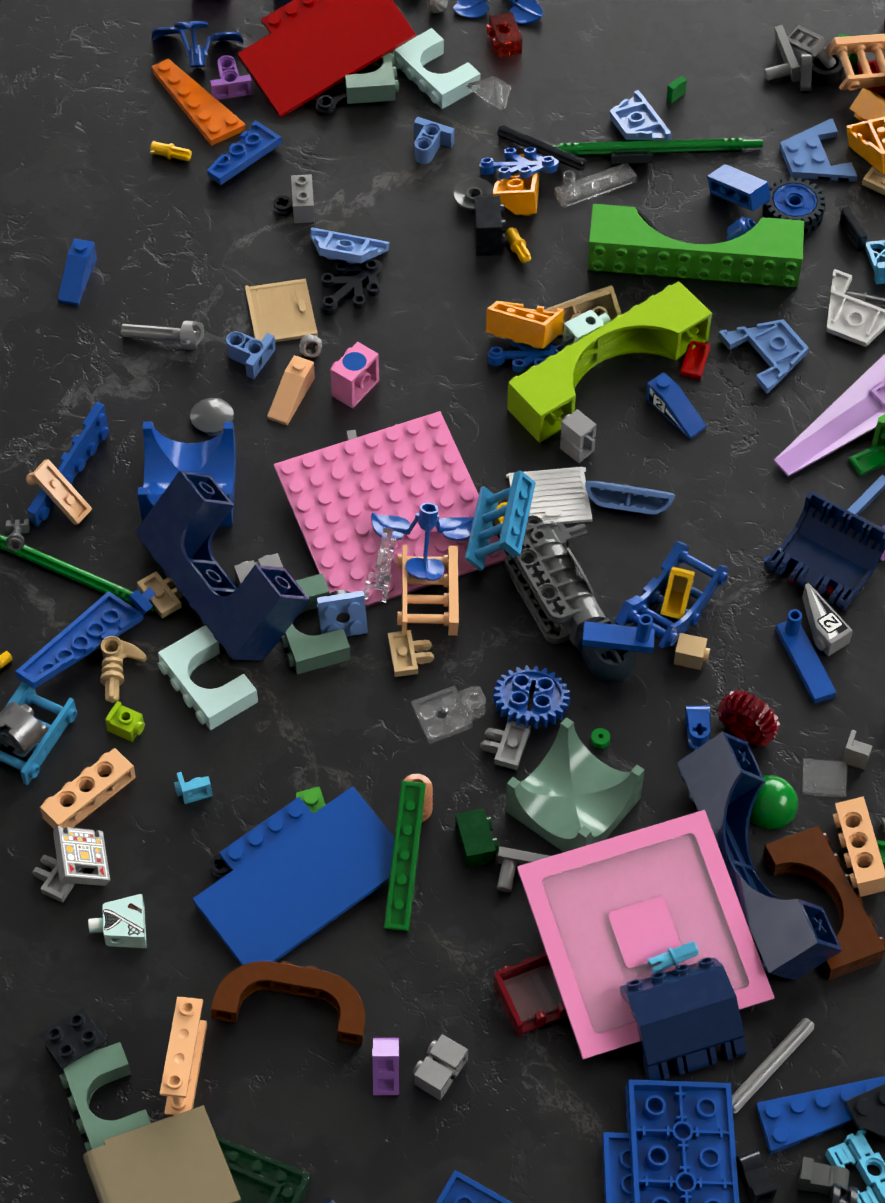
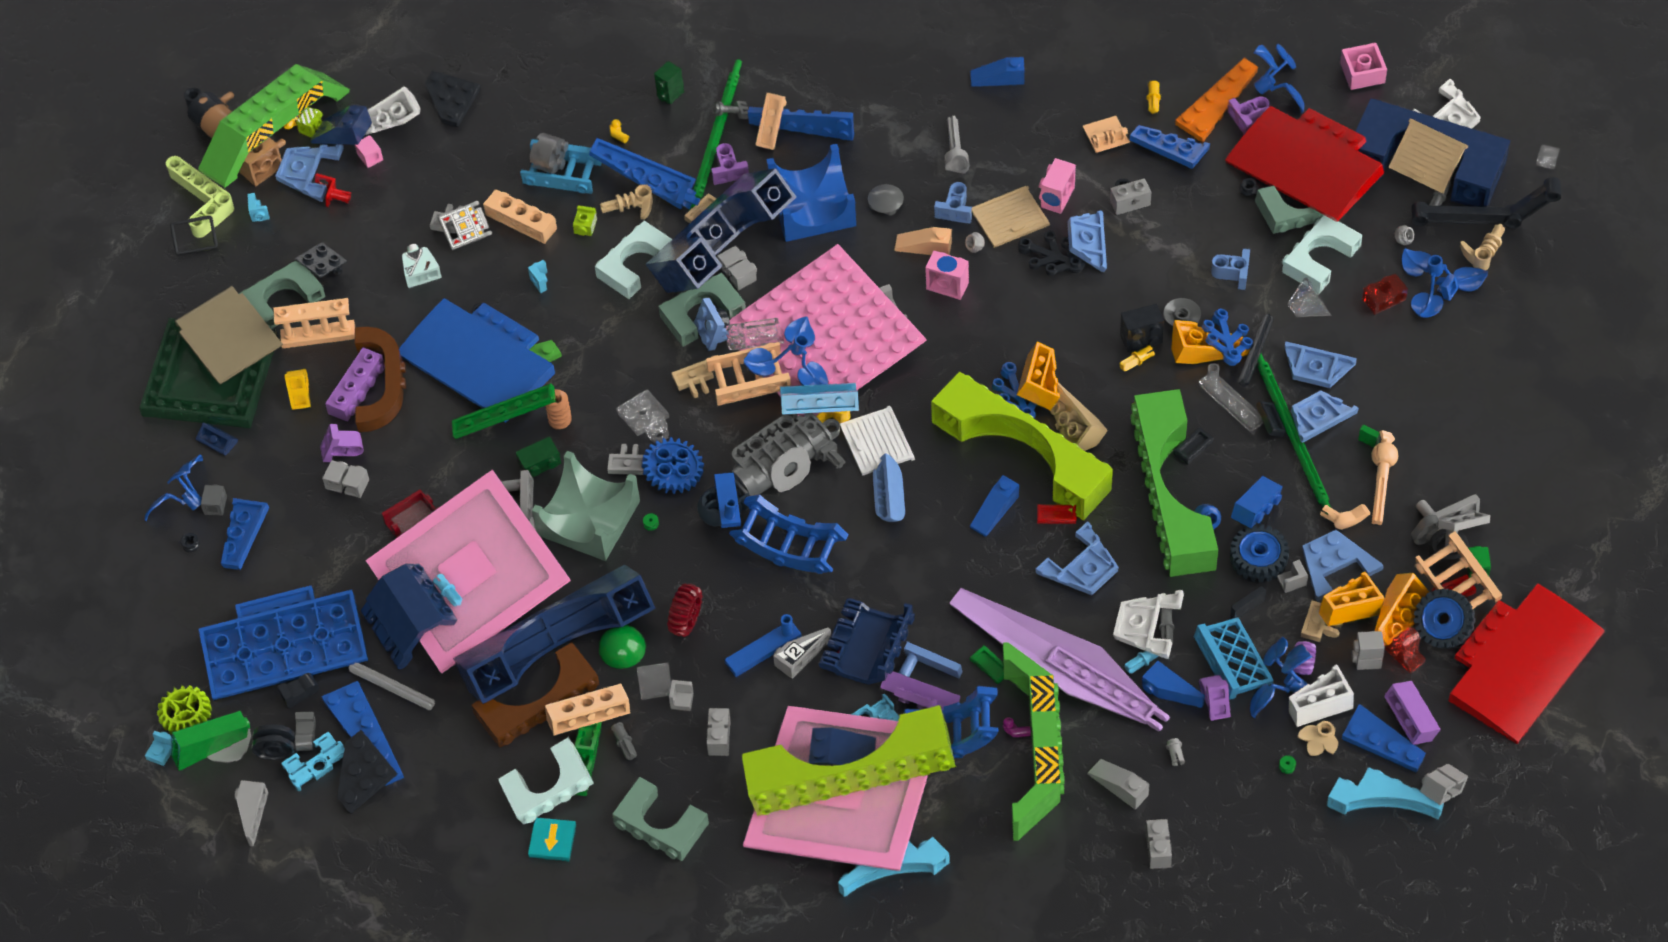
camera: 80 degrees right, 0 degrees up
(94, 554) = (728, 168): none -> medium lavender tile
(203, 201) = (1106, 134): none -> light nougat hinge
(268, 251) = (1057, 185): none -> bright pink brick
(273, 1101) = (298, 388): none -> yellow tile
(291, 1031) = (355, 384): none -> medium lavender brick
(574, 108) = (1317, 365): none -> medium blue wing
(577, 436) = (932, 439): light grey piece -> none
(582, 325) = (1046, 414): light aqua torso -> none
(677, 592) = (793, 537): yellow slope -> none
(691, 651) = (745, 564): tan brick -> none
(698, 725) = (674, 580): blue piece -> none
(706, 82) = (1384, 456): none -> light nougat piece
(771, 129) = (1345, 519): none -> light nougat arm
(830, 185) = (1293, 579): none -> light grey panel

